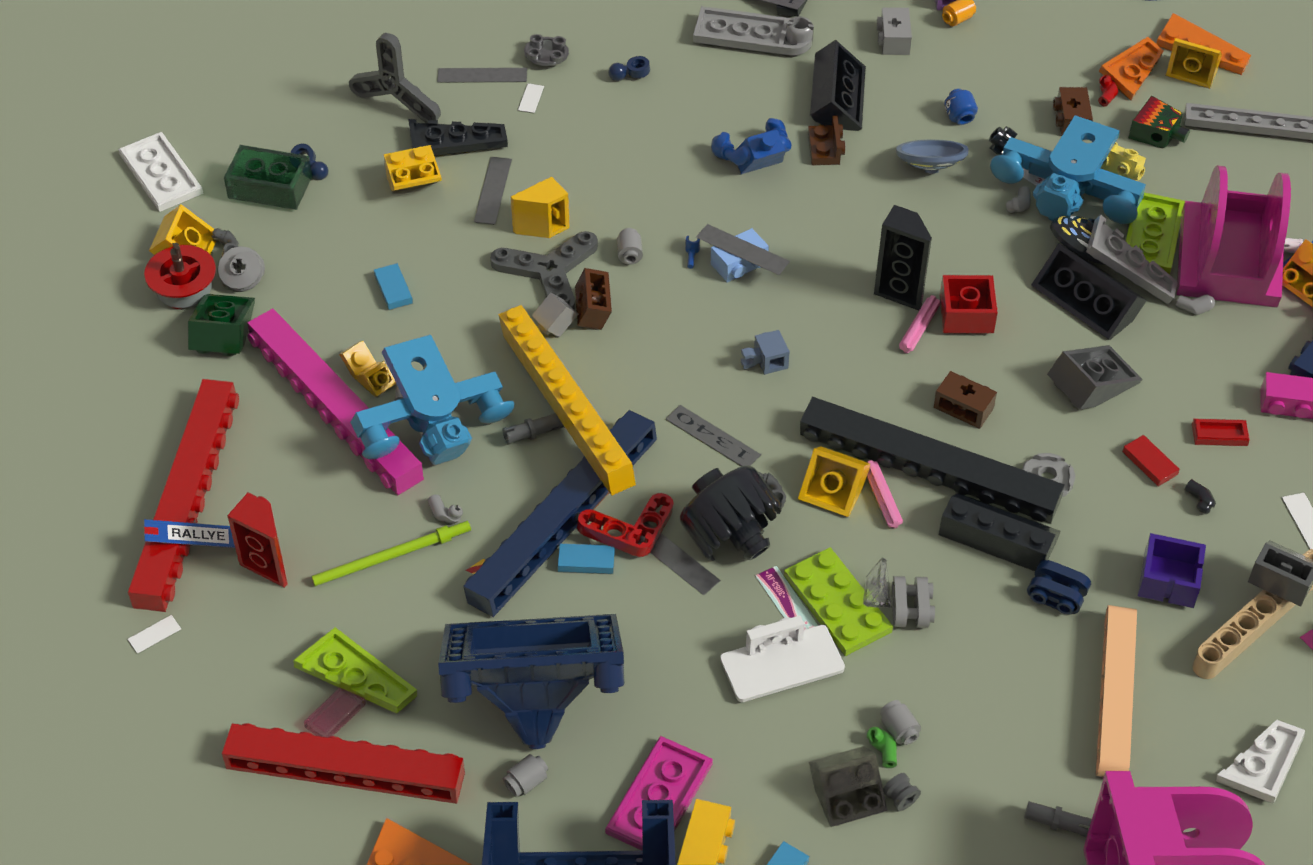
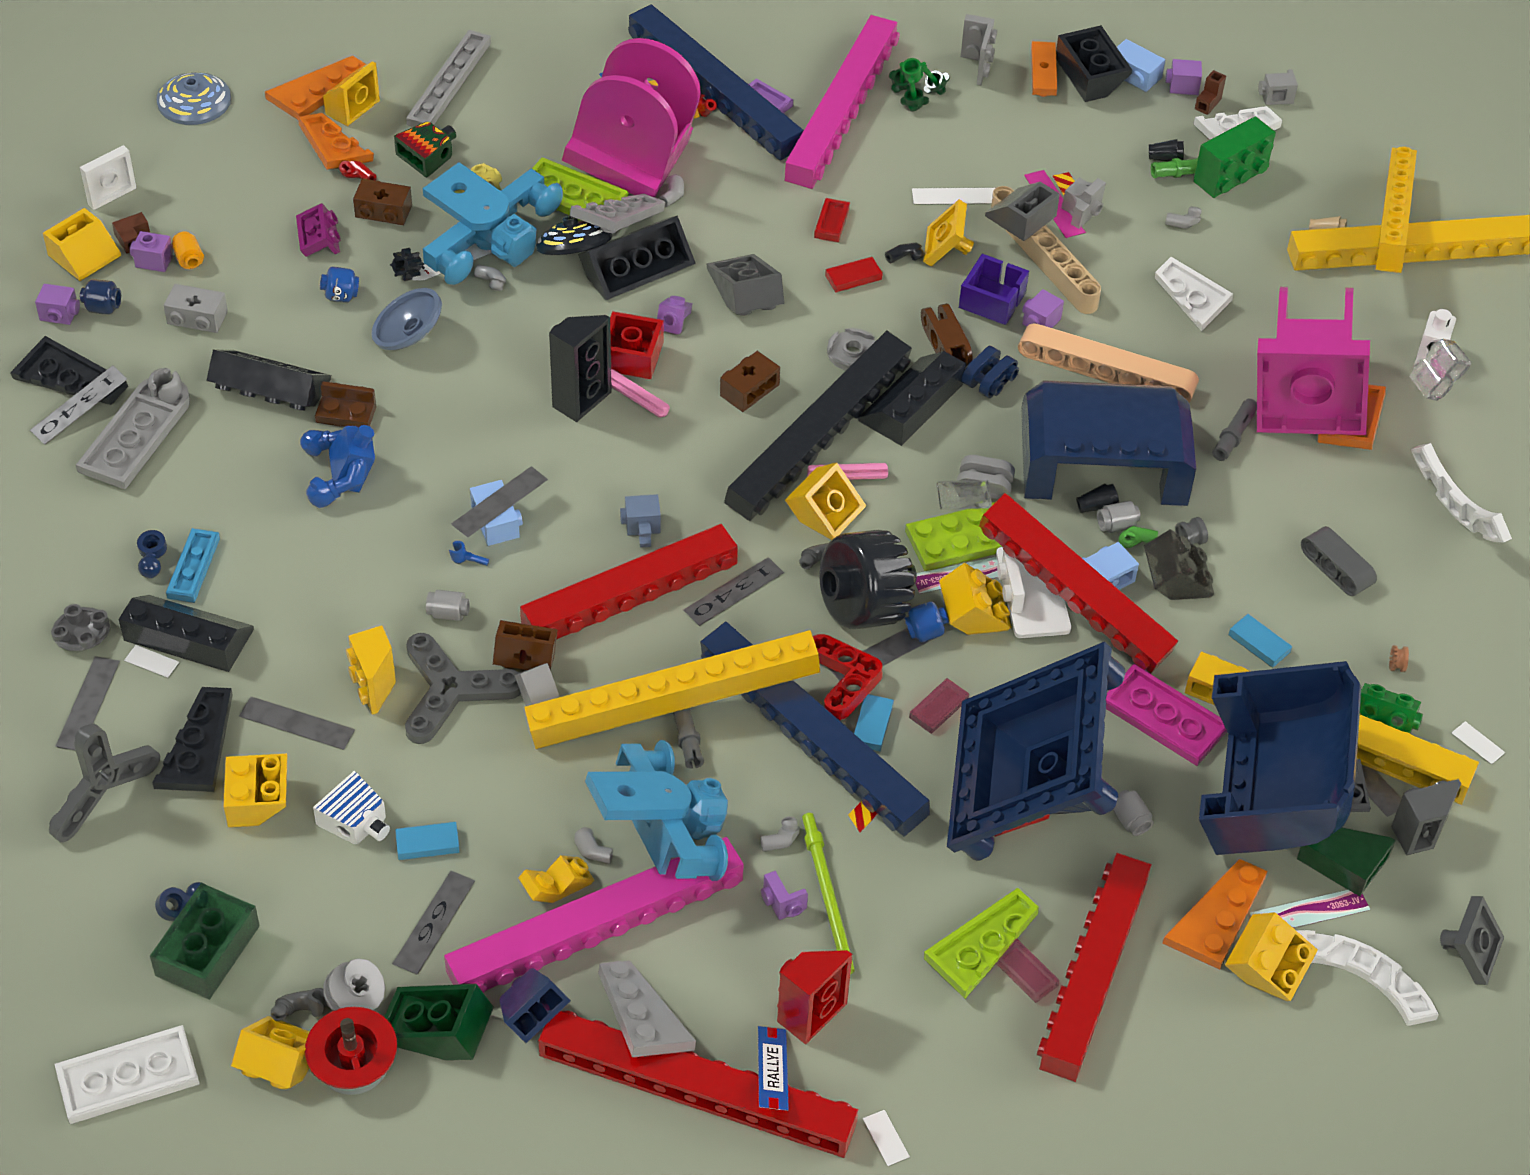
camera: 80 degrees left, 0 degrees up
(228, 441) = (641, 1013): none -> light grey wing
(245, 367) = (531, 1003): none -> dark blue torso
(320, 308) = (433, 922): none -> flat silver sticker
(376, 515) = (777, 896): none -> medium lavender bracket
(408, 234) = (352, 811): none -> white torso
(561, 104) = (184, 631): none -> black slope
(628, 609) = (938, 706): none -> clear pink tile
(629, 96) = (193, 565): none -> dark azure tile
(690, 359) = (633, 582): none -> red brick
(710, 577) = (926, 621): none -> blue head
(743, 609) = (974, 601): none -> yellow slope
(775, 682) = (1077, 583): none -> red brick
(821, 718) = (1115, 565): none -> light blue brick
(921, 705) = (1097, 498): none -> black cone
(998, 695) = (1107, 428): none -> dark blue slope
(1021, 83) = (317, 230): none -> magenta bracket
(1031, 329) = (673, 312): none -> medium lavender bracket
(1093, 543) = (946, 333): none -> reddish brown piece
(1164, 622) = (1043, 310): none -> medium lavender brick
(1233, 523) = (947, 233): none -> yellow tile

